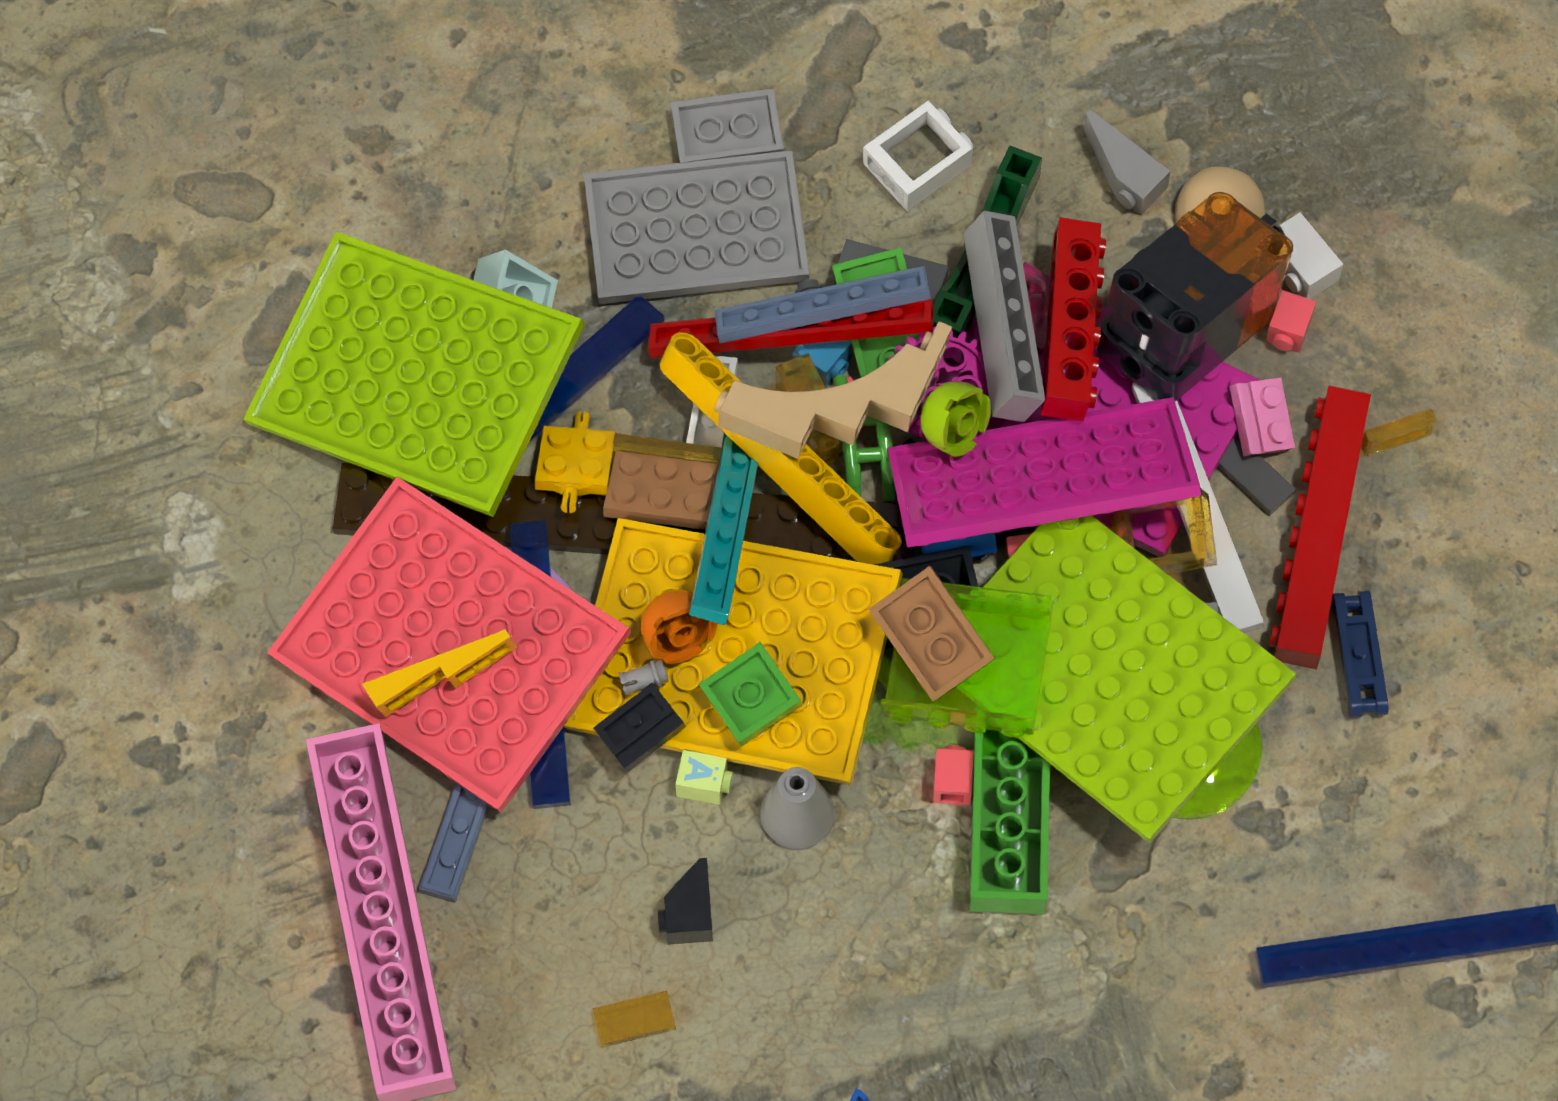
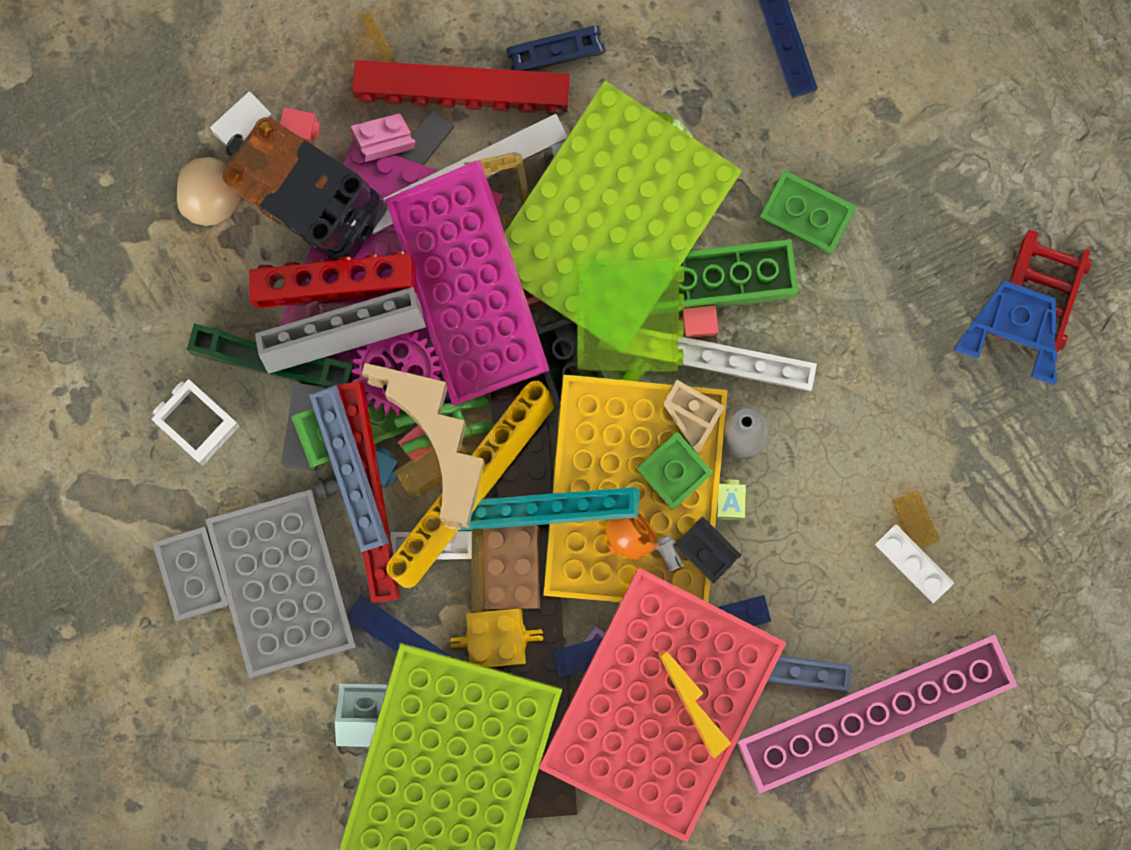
camera: 100 degrees left, 15 degrees up
(574, 1003) = (914, 564): none -> white plate
(688, 908) = (830, 494): black slope -> none
(824, 726) = (692, 413): none -> tan wing
(890, 820) = (747, 364): none -> white plate
(932, 634) = (619, 340): medium nougat plate -> none
(954, 417) = (432, 355): lime cylinder -> none
(1087, 944) = (807, 212): none -> bright green plate
(1130, 171) = (185, 262): light grey slope -> none

